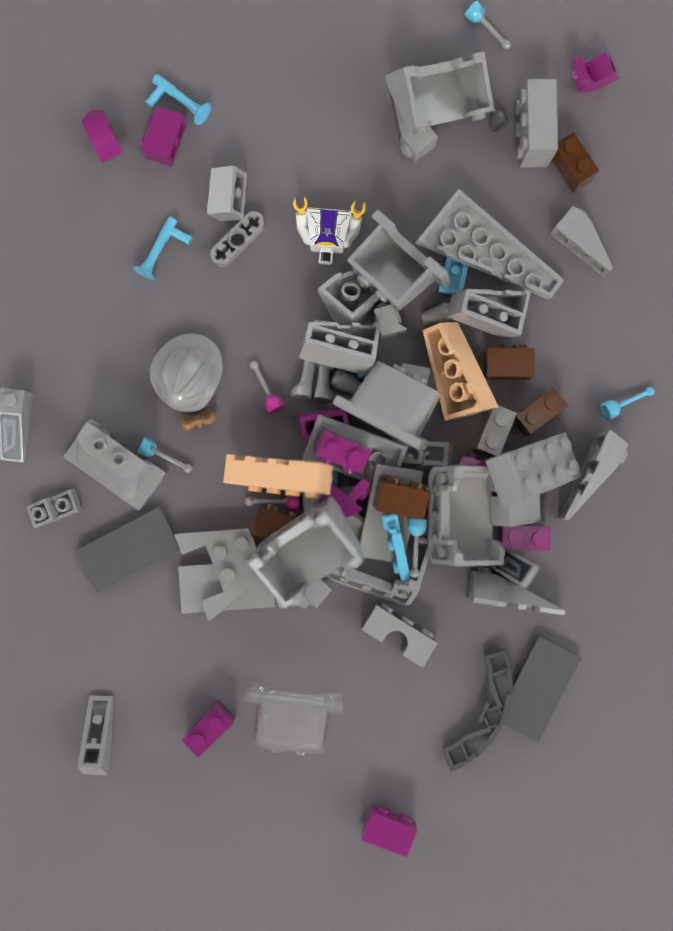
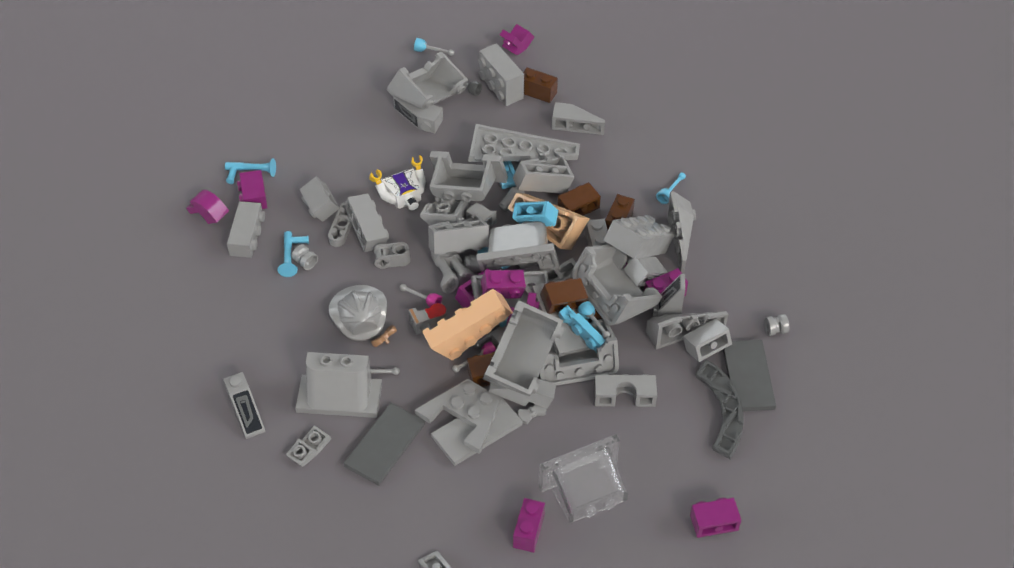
camera: 35 degrees left, 35 degrees down
(128, 189) = (245, 229): none -> light grey brick
(171, 266) = (303, 256): none -> light grey wheel
(254, 425) = (427, 318): none -> light grey leg
(259, 316) = (393, 255): none -> light grey piece
(260, 258) = (366, 221): none -> light grey brick
(437, 373) = (535, 212): none -> medium azure brick
(522, 629) = (707, 340): none -> light grey brick
(609, 651) = (776, 325): none -> light grey wheel

